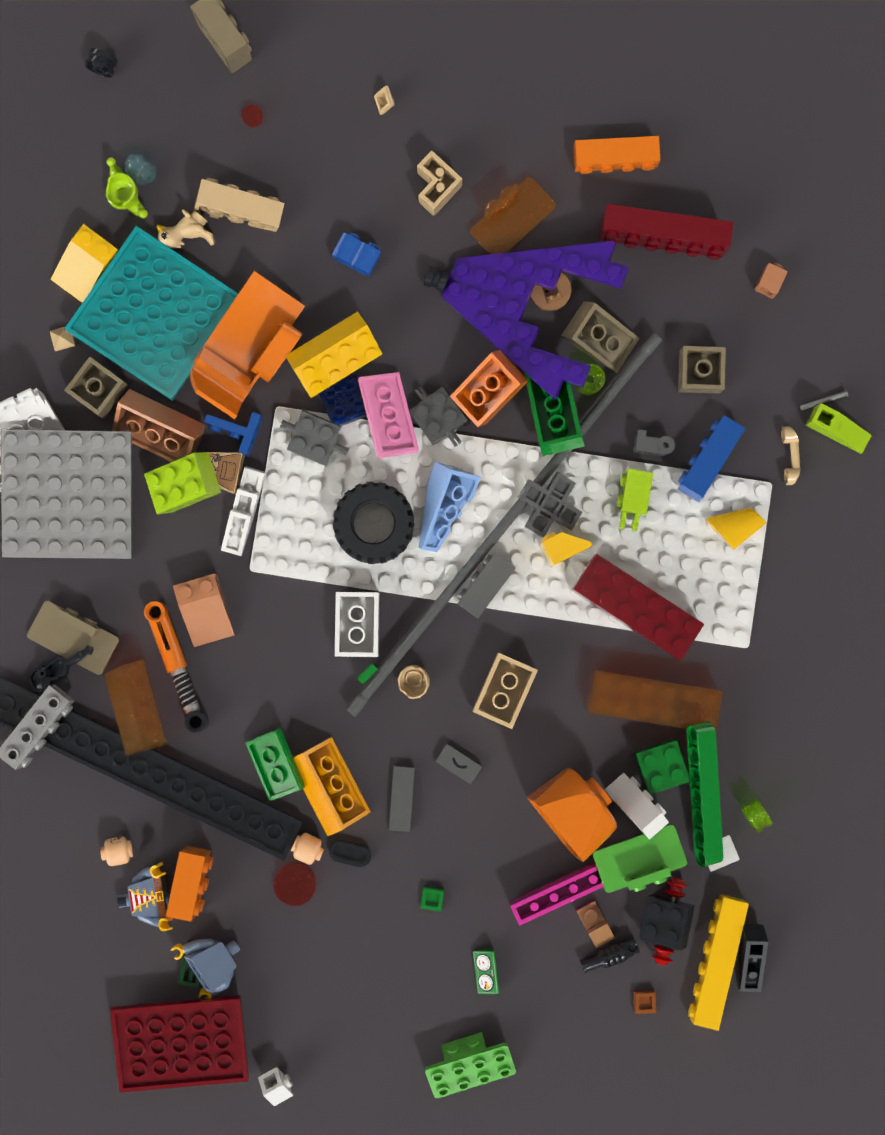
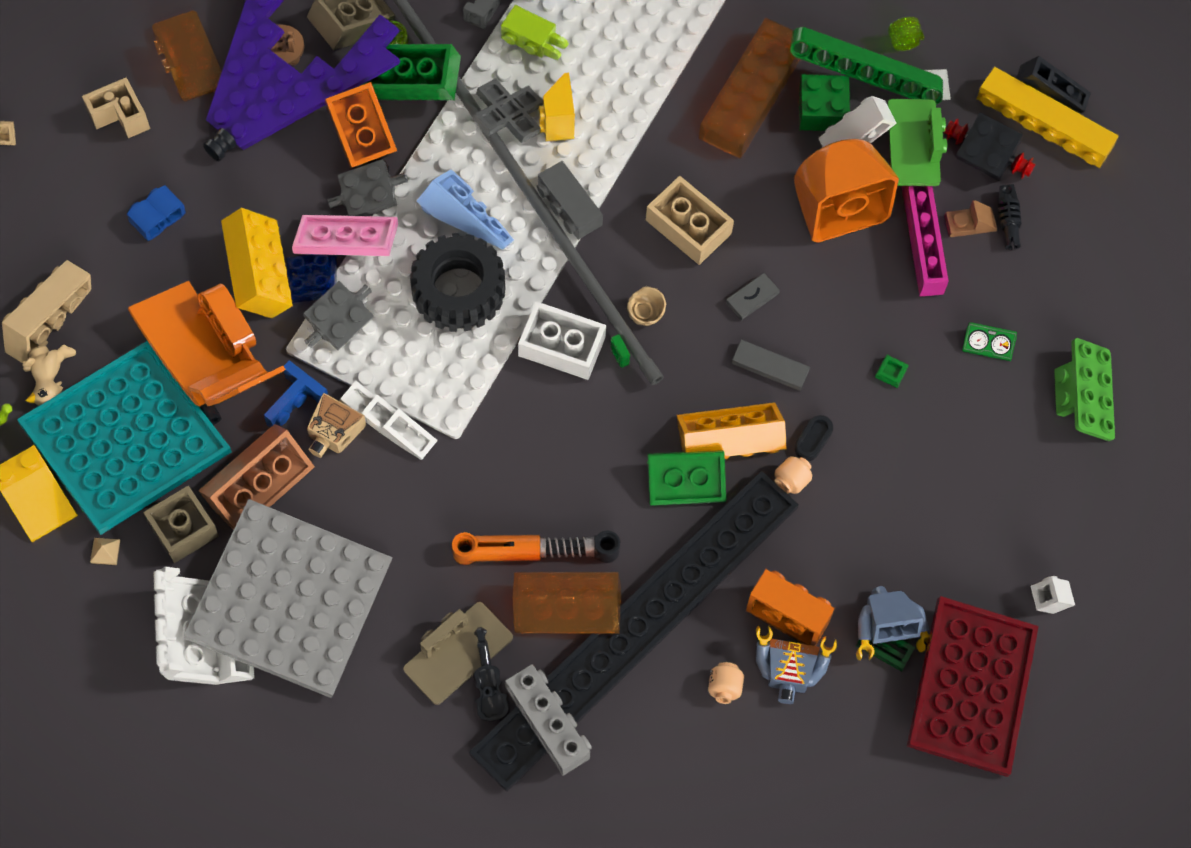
camera: 70 degrees left, 20 degrees down
(182, 483) = (330, 463): lime brick -> none
(204, 609) = (482, 497): nougat slope -> none
(294, 884) = (829, 507): clear red tile -> none
(637, 607) = (648, 67): dark red brick -> none
(644, 1001) = (1069, 202): dark orange tile -> none

